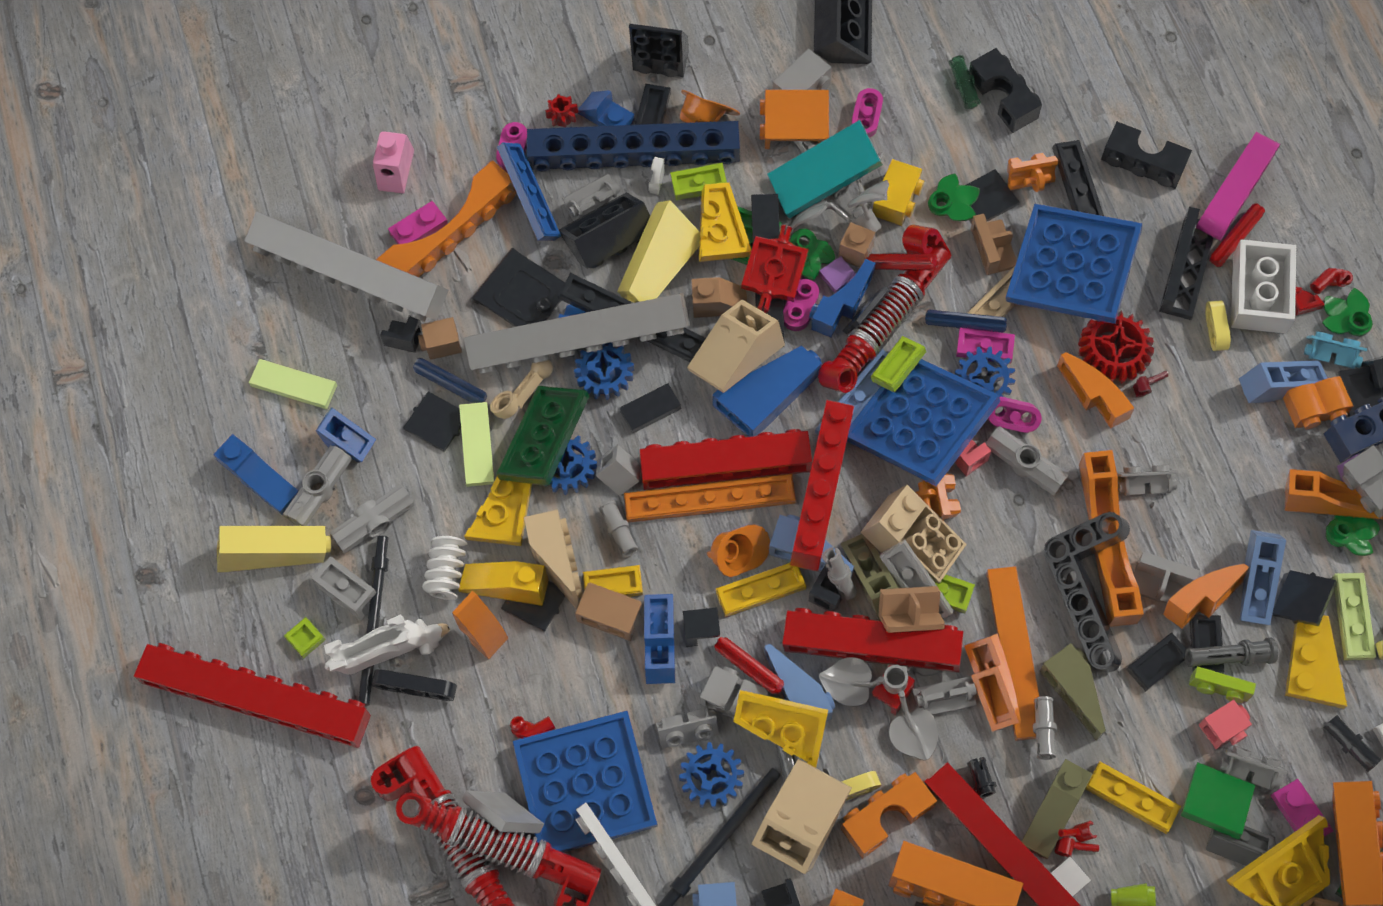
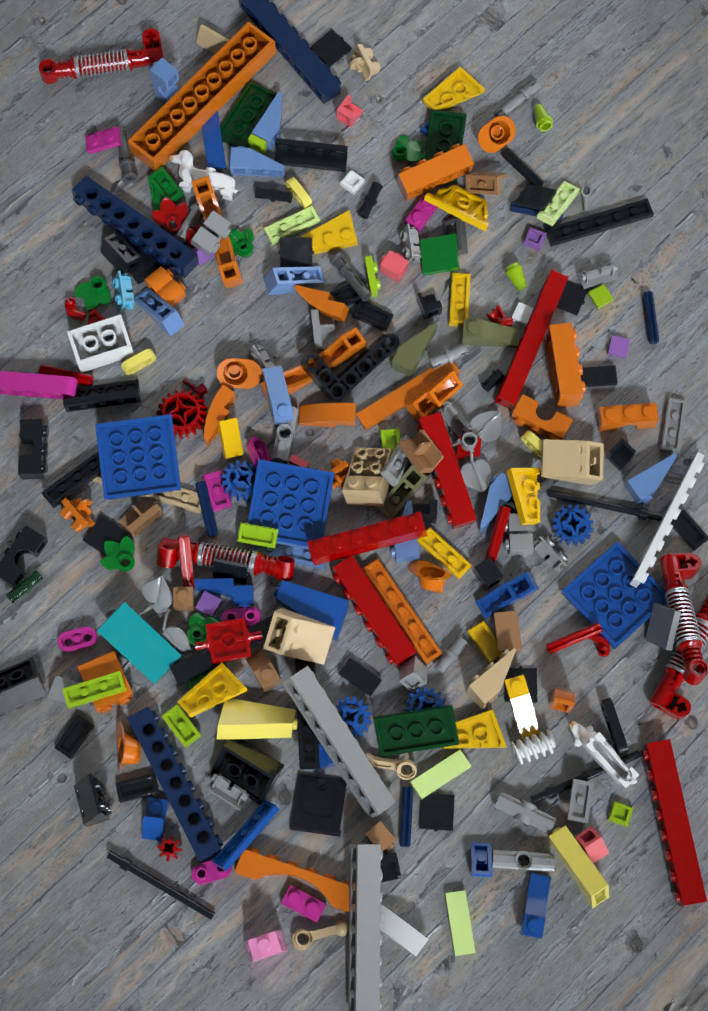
camera: 120 degrees left, 5 degrees up
(285, 574) = (592, 844): none -> coral brick
(325, 309) = (401, 931): none -> white slope
(373, 225) = (340, 928): none -> tan piece
(555, 694) = (574, 638): none -> red axle
(569, 64) = (127, 865): none -> black bar
(657, 176) = (190, 756): white tile -> none
(749, 68) = (74, 737): none -> black tile
(788, 92) = (94, 689): none -> lime plate
(839, 573) = (417, 504): light grey pin -> none
(903, 186) = (128, 591): yellow brick -> none
(1029, 529) = (328, 414): none -> orange slope
(1052, 388) = (230, 438): none -> yellow tile
(1080, 458) = (278, 395): none -> medium blue slope
(1141, 745) = (429, 305): none -> black panel
(1143, 436) = (239, 373): none -> orange piece

